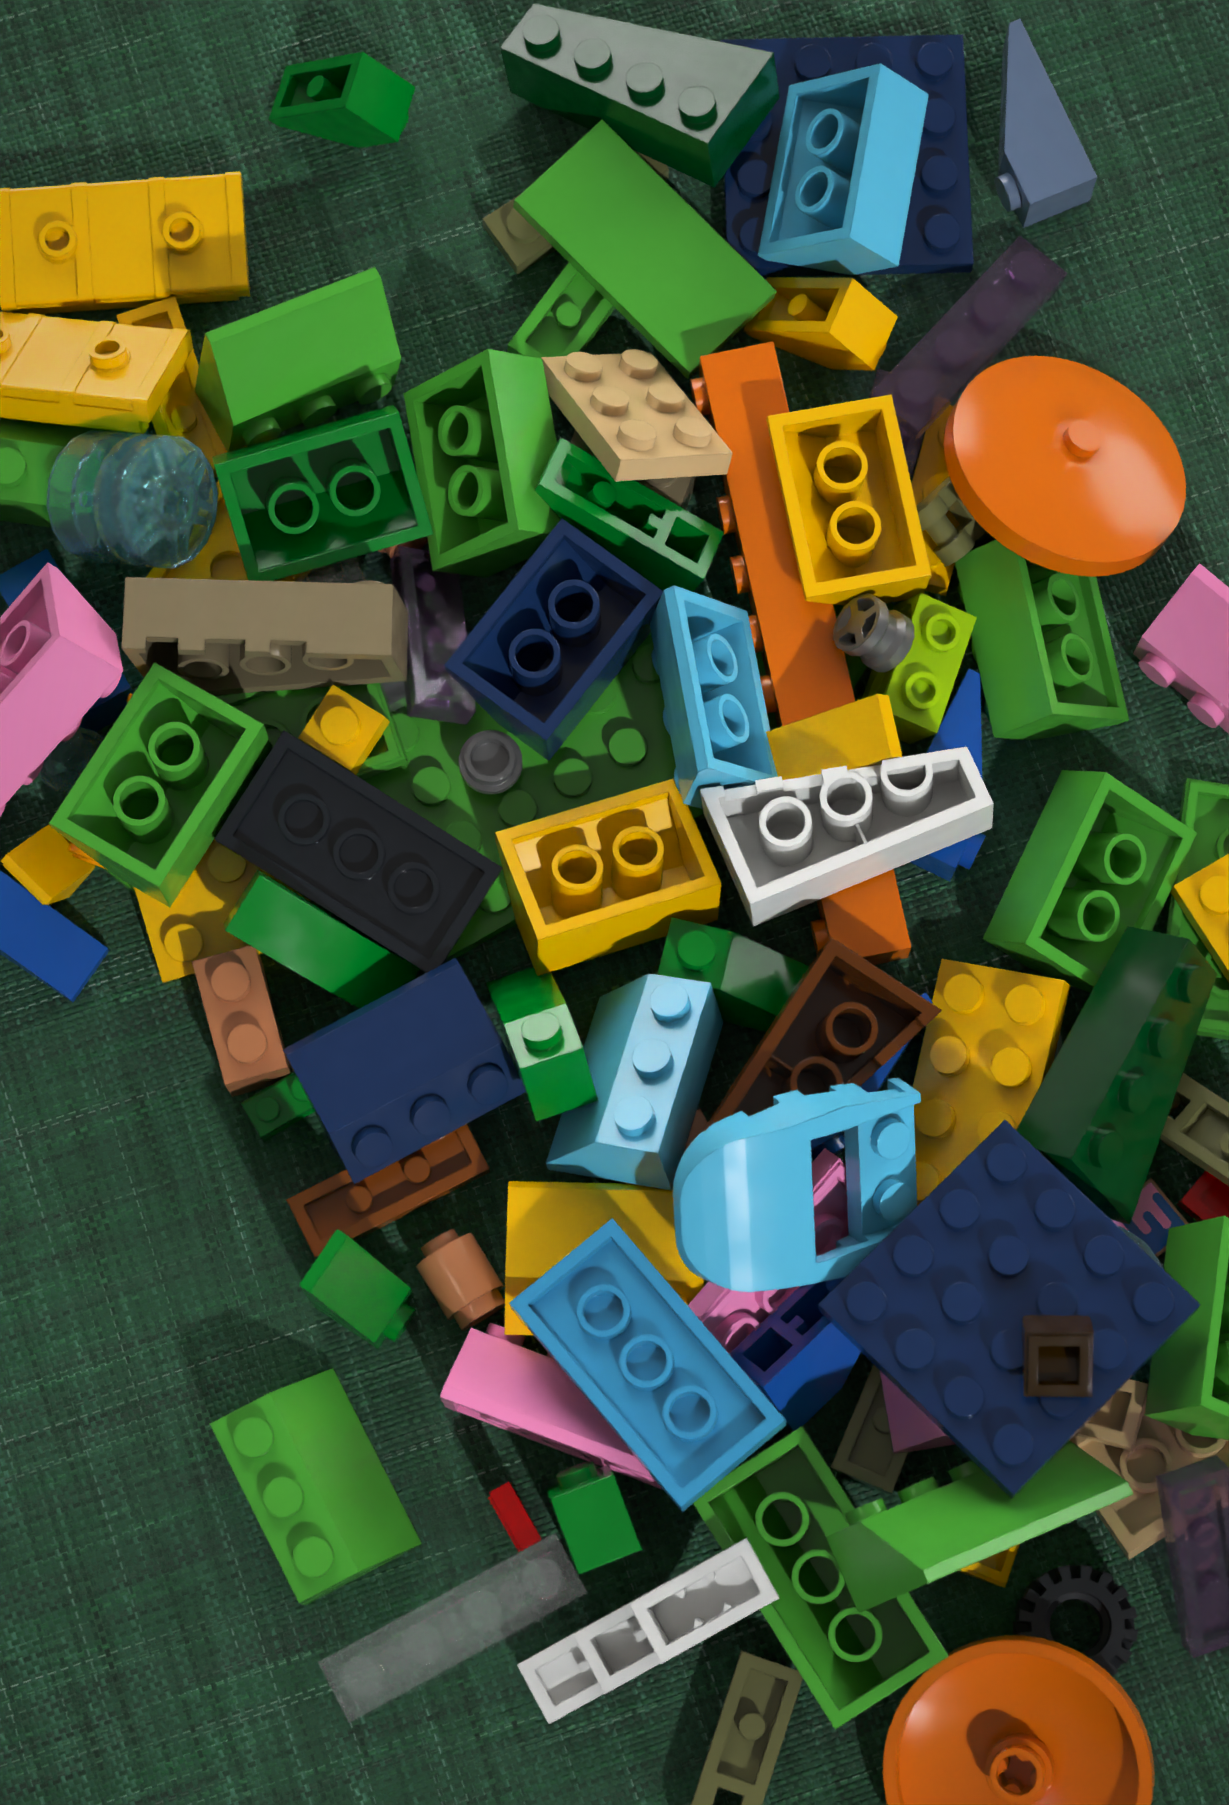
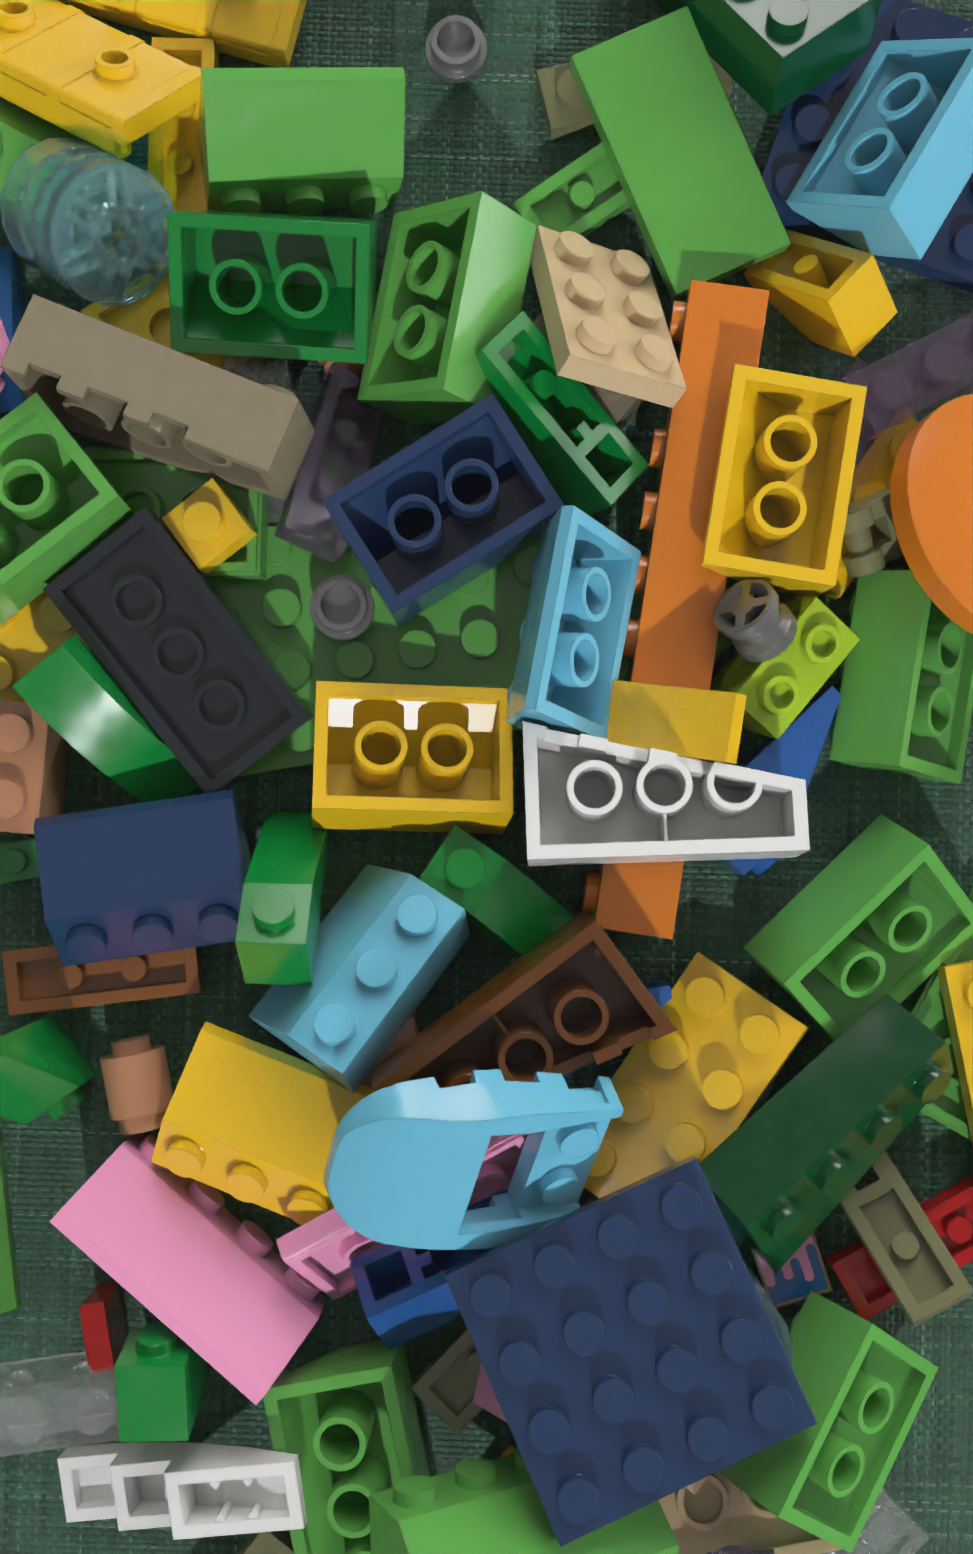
camera: 20 degrees right, 10 degrees up
(400, 226) = (456, 49): none -> flat silver plate
(647, 1364) = (257, 1275): dark azure plate -> none
(1057, 1356) = (657, 1431): dark brown slope -> none

